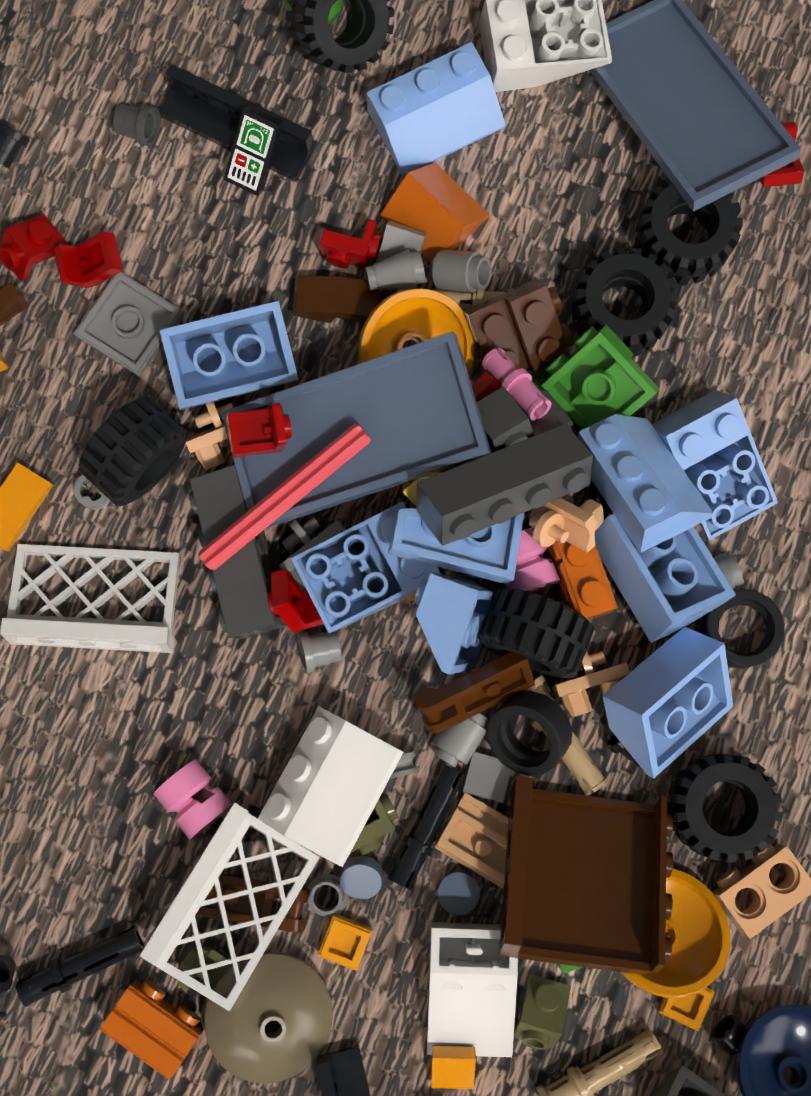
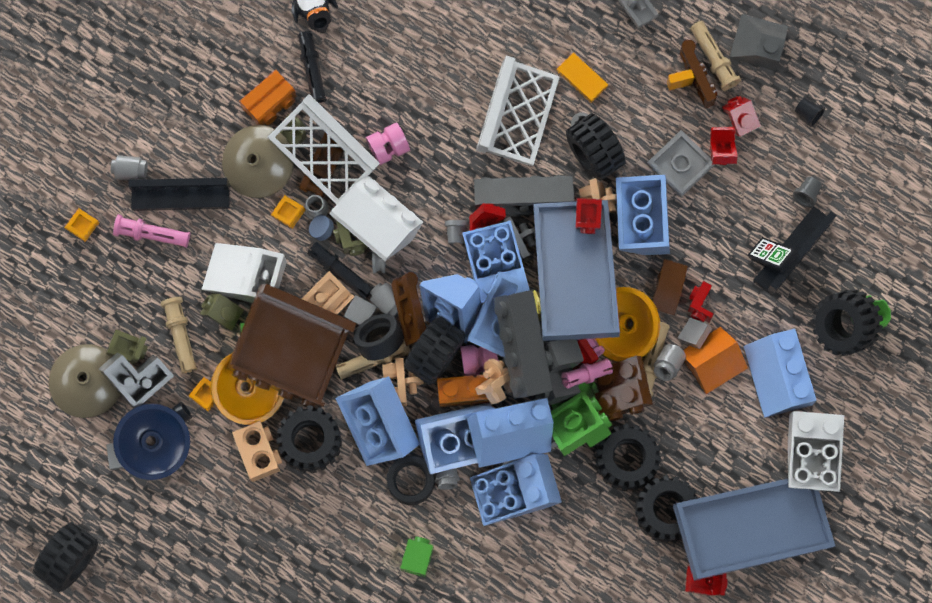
camera: 105 degrees right, 5 degrees down
(284, 496) = (546, 223): coral axle -> none
(397, 272) = (676, 324): light grey cone -> none
(453, 1067) = (205, 254): light orange tile -> none
(458, 893) = (298, 280): sand blue tile -> none

